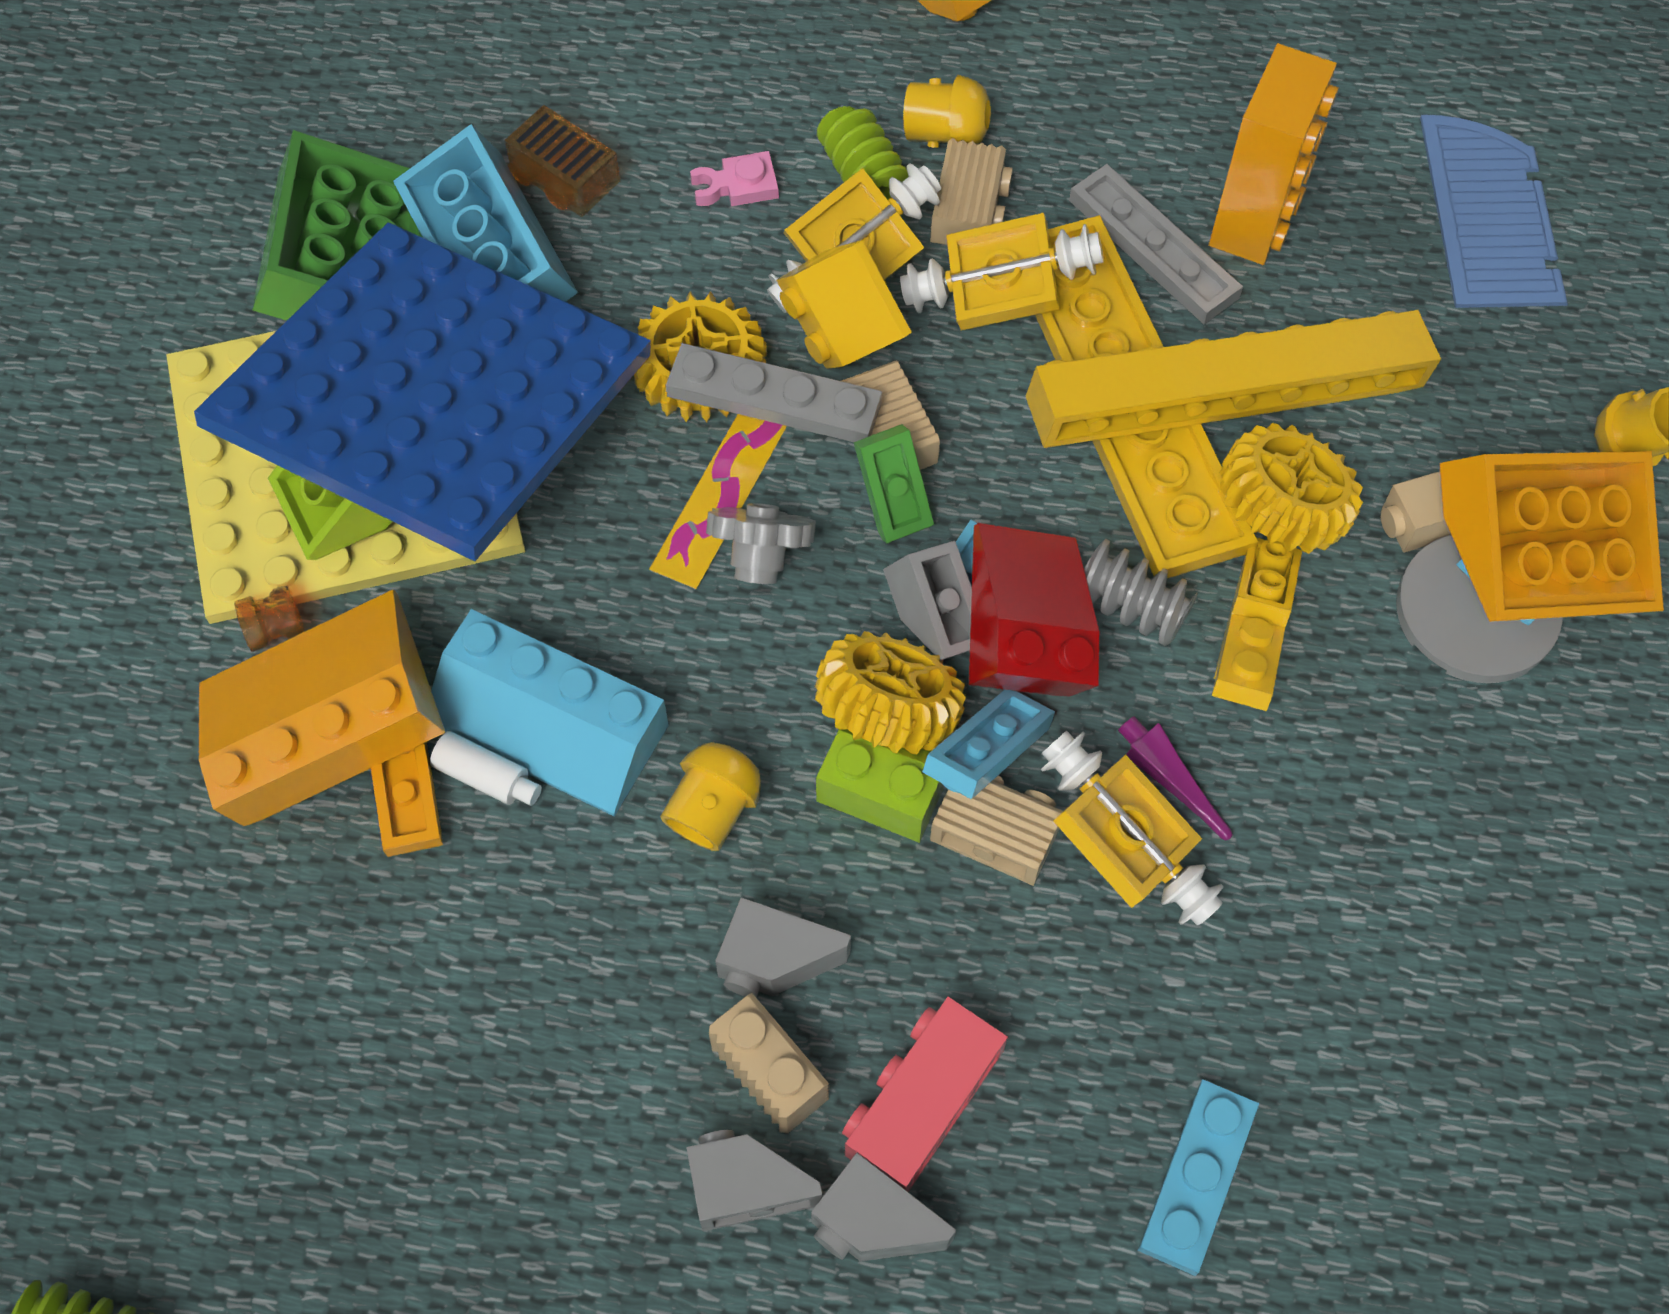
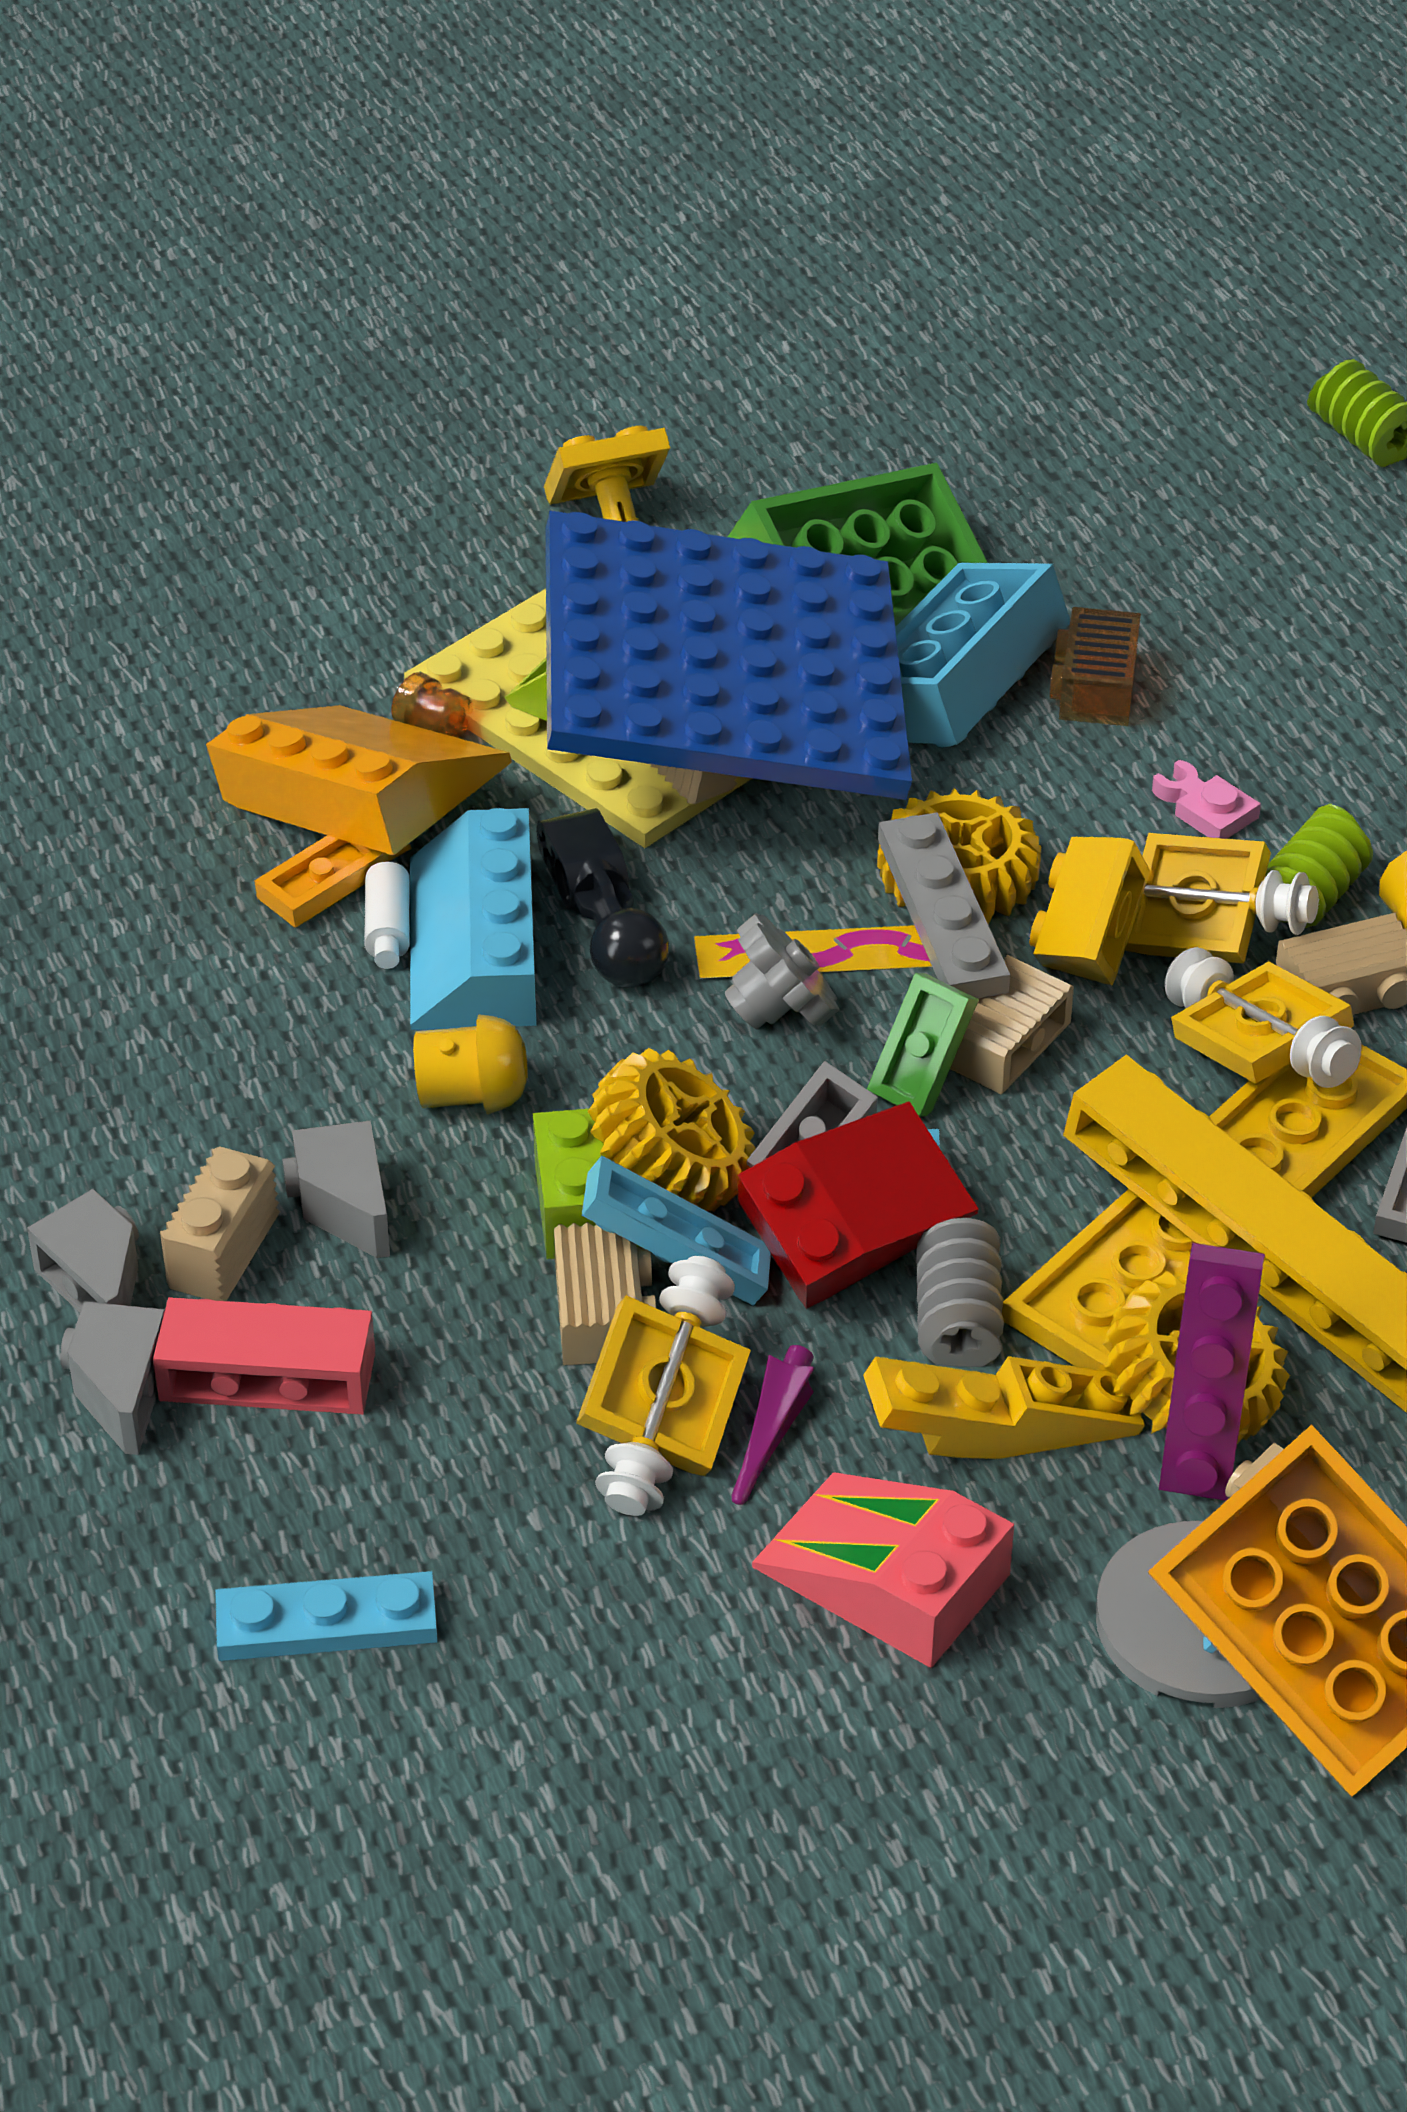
camera: 60 degrees right, 20 degrees down
(92, 348) = (608, 469): none -> yellow plate
(552, 602) = (592, 875): none -> black beam
(1347, 768) = (893, 1559): none -> coral slope
(1365, 482) = (1210, 1370): none -> magenta plate

